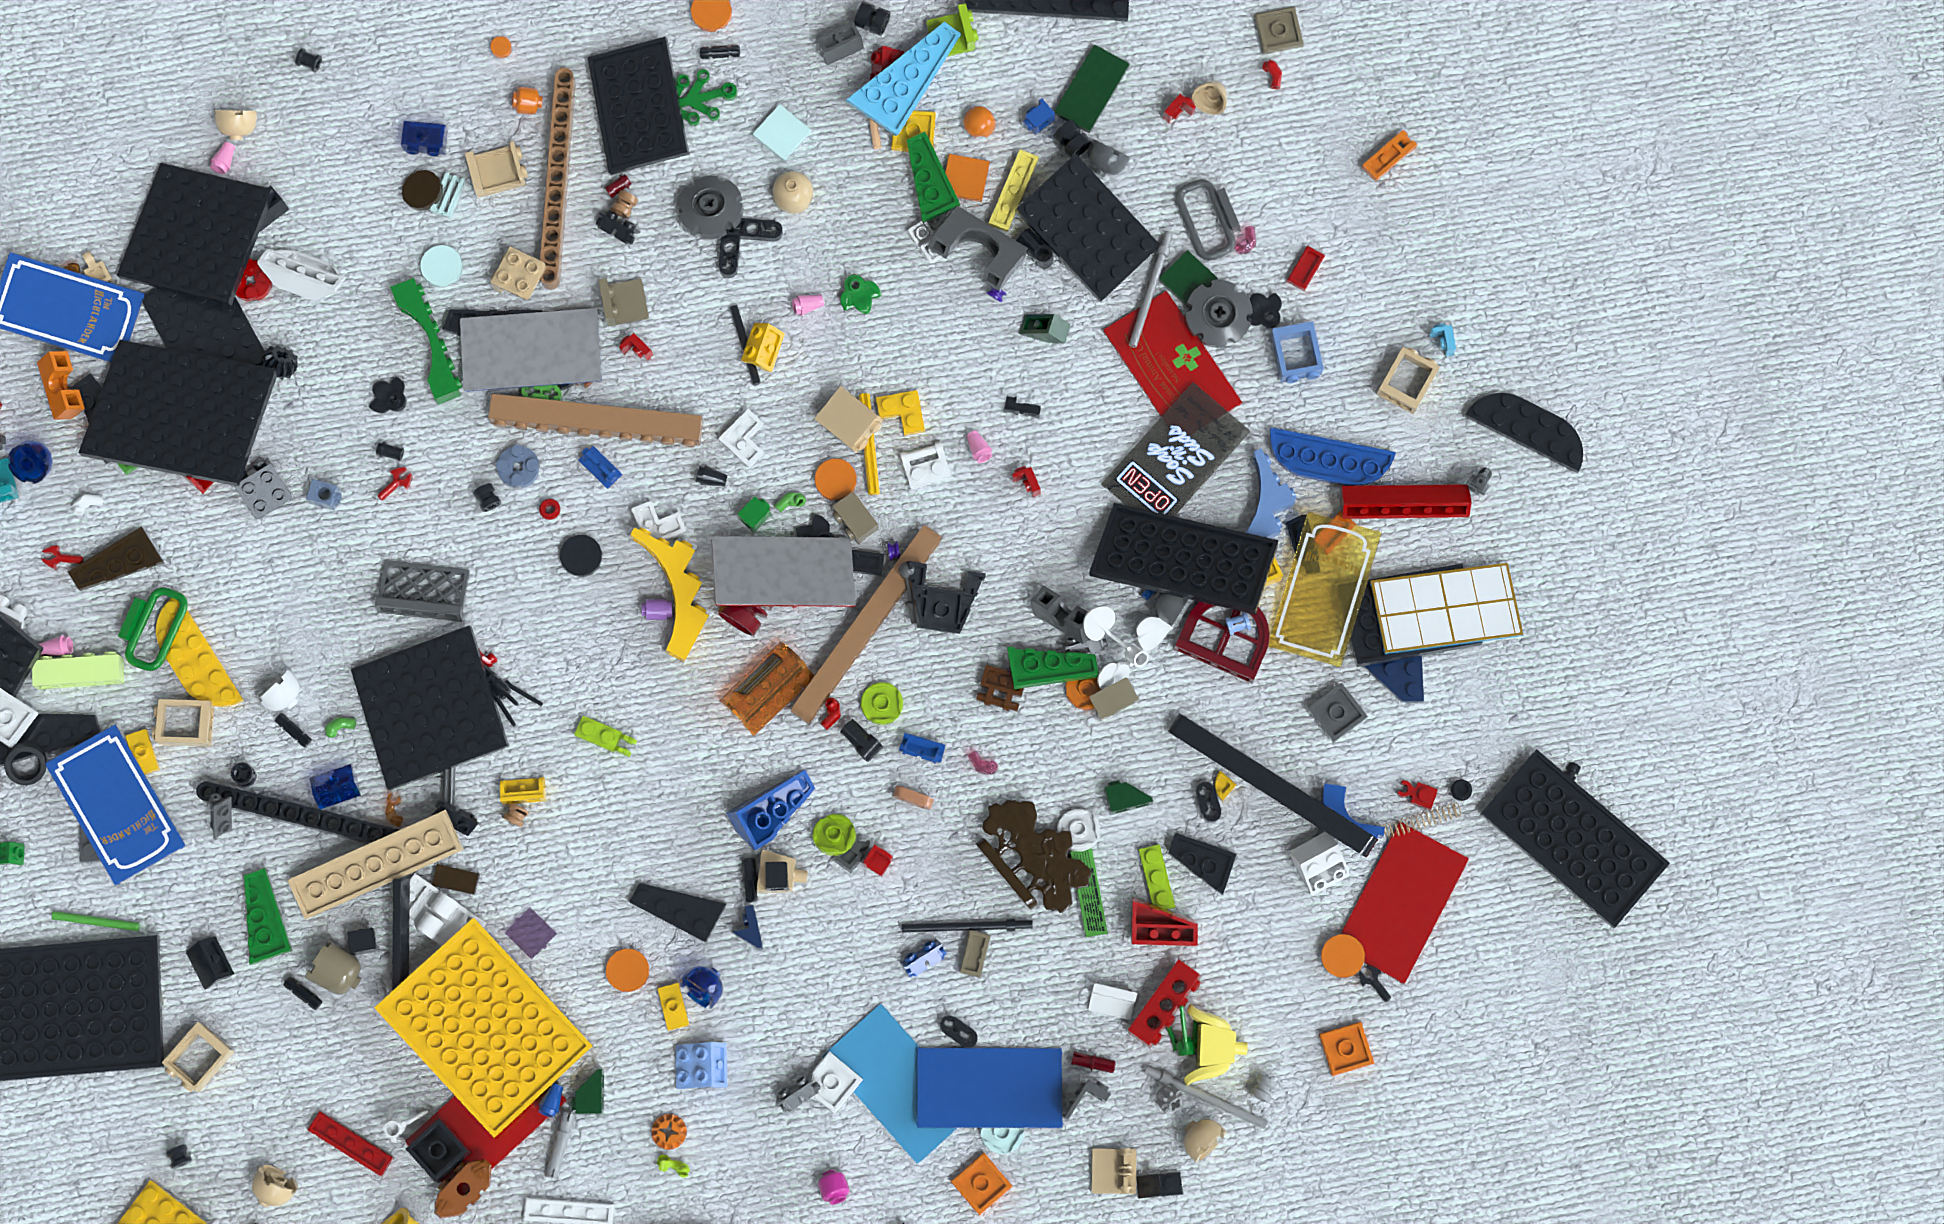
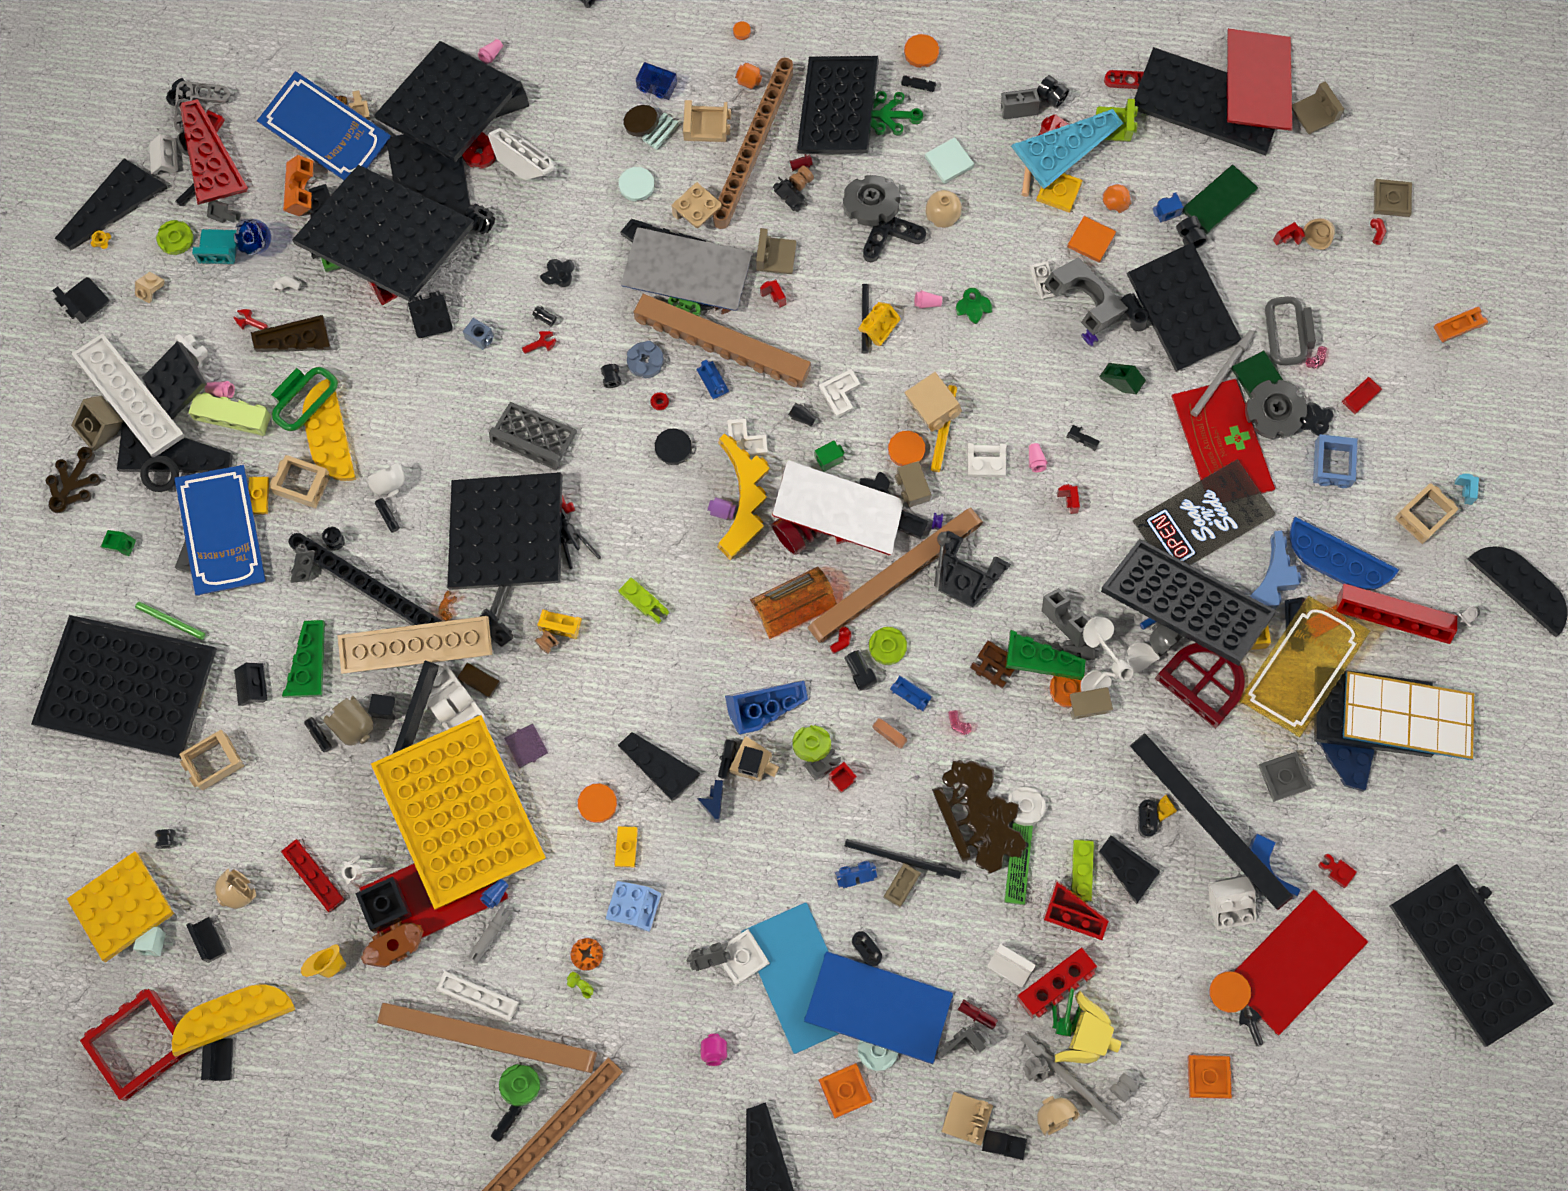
camera: 20 degrees right, 5 degrees down
(235, 123) = (509, 25): tan cylinder -> none
(335, 786) = (404, 571): clear blue brick -> none
(336, 724) = (420, 522): bright green arm -> none
(441, 379) = (605, 270): green arch -> none
(590, 1095) = (529, 900): dark green slope -> none
(703, 985) = (657, 836): clear blue cylinder -> none
(790, 499) = (862, 453): bright green arm -> none
(904, 405) = (982, 405): yellow plate -> none
(931, 182) = (1062, 230): green wing -> none
(1013, 190) = (1129, 260): light yellow plate -> none
(1106, 159) = (1216, 256): dark grey cylinder -> none
(1125, 797) = (1075, 791): dark green slope -> none
(1241, 618) = (1212, 669): light blue bush -> none
(1454, 808) = (1367, 893): tan piece -> none
(1461, 790) = (1377, 879): black plate -> none

